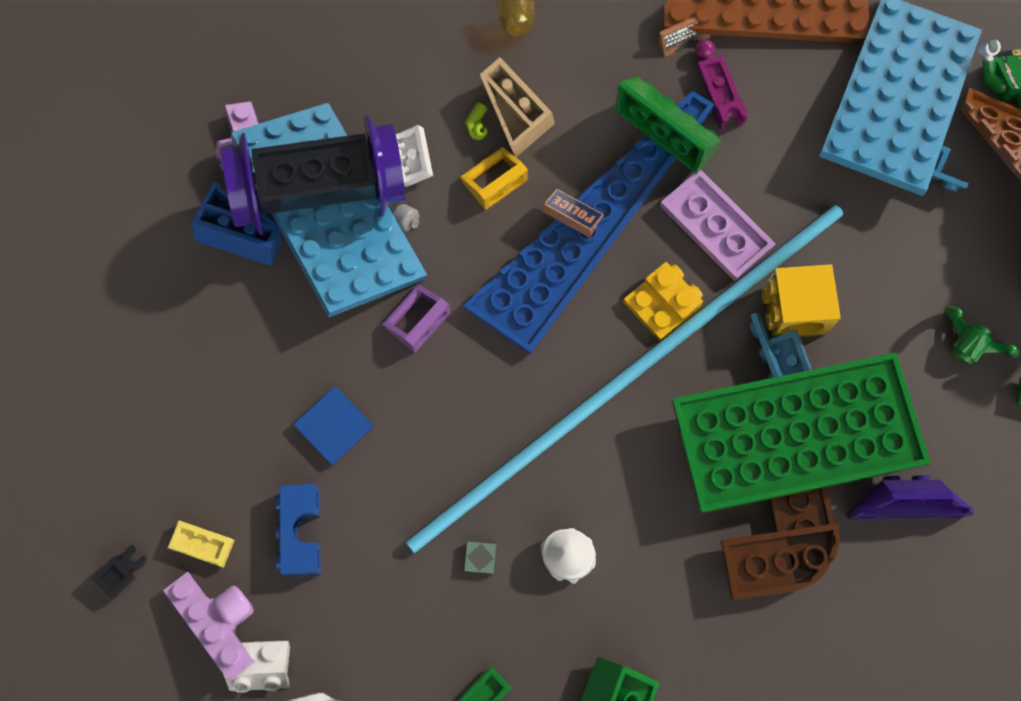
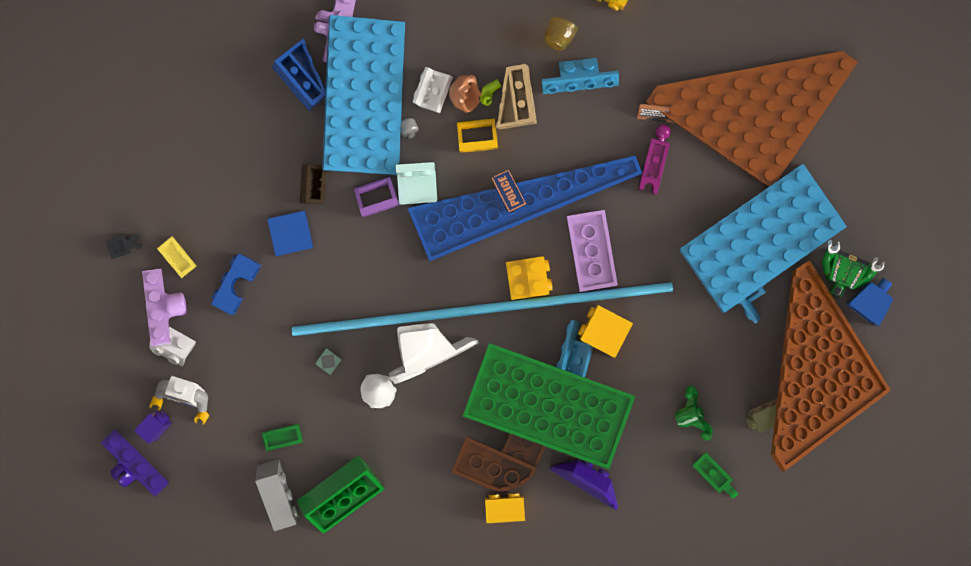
camera: 30 degrees right, 15 degrees up
(313, 174) = (359, 81): black brick -> none
(326, 347) = (312, 184): none -> dark brown brick
(447, 135) = (465, 93): none -> nougat hair
(454, 268) = (416, 183): none -> light aqua bracket
(570, 47) = (579, 76): none -> dark azure bracket
(594, 460) = (424, 347): none -> white piece
(666, 123) = (600, 170): green slope -> none
(832, 605) = (505, 508): none -> yellow brick

